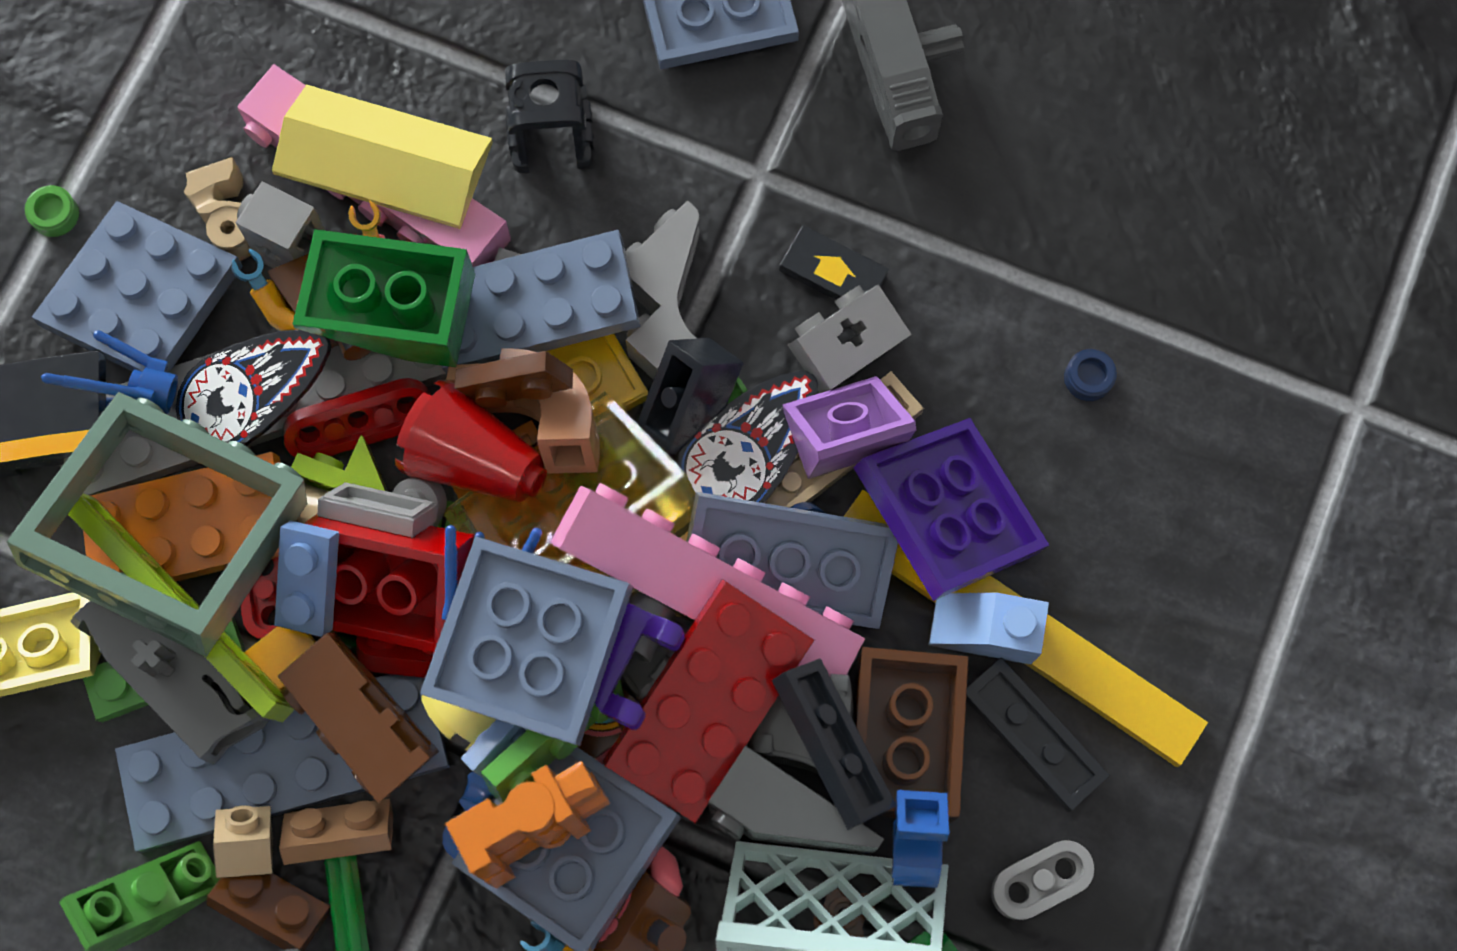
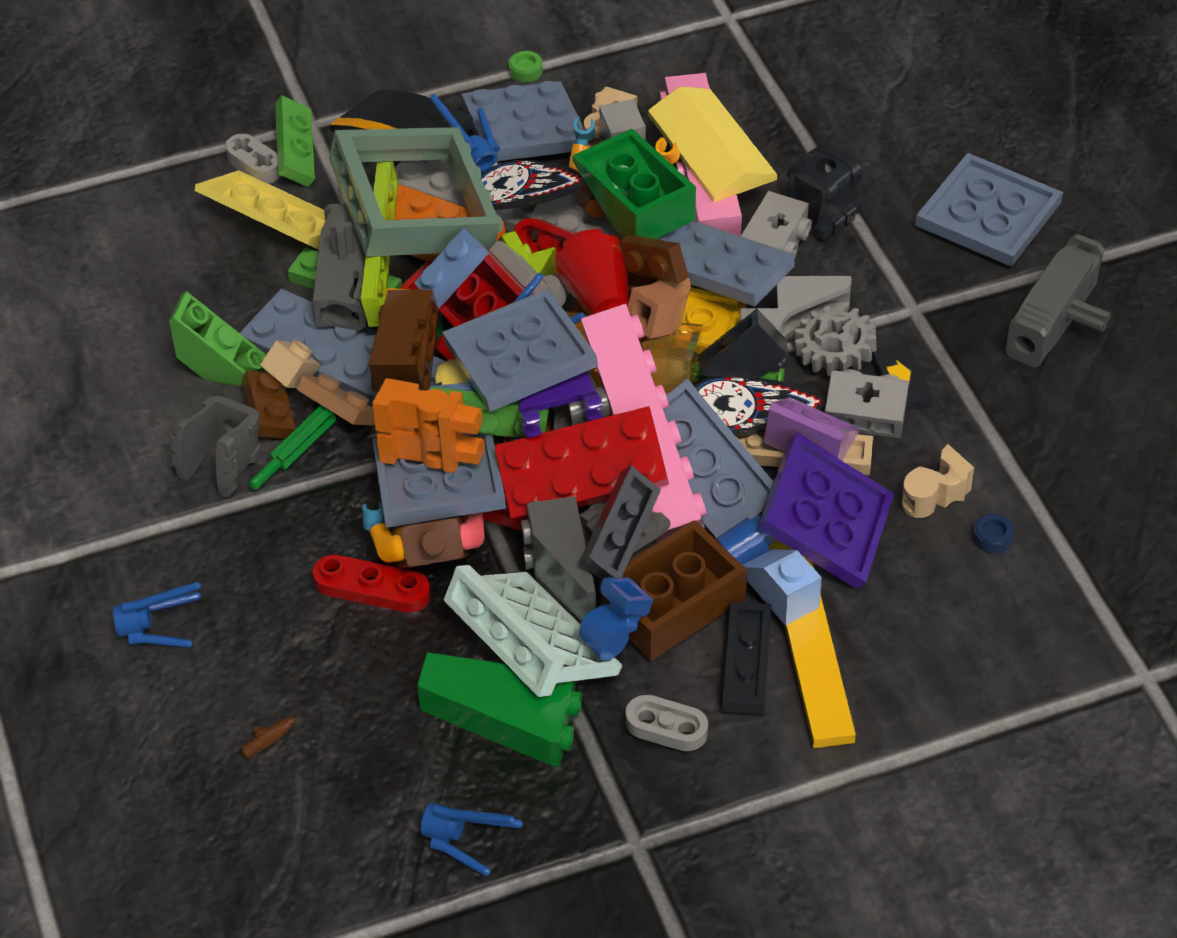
camera: 50 degrees right, 25 degrees down
(541, 179) = (779, 223): none -> light grey brick
(758, 292) = (835, 339): none -> light grey gear
(907, 615) = (746, 540): none -> blue brick
(995, 386) = (927, 488): none -> tan leg

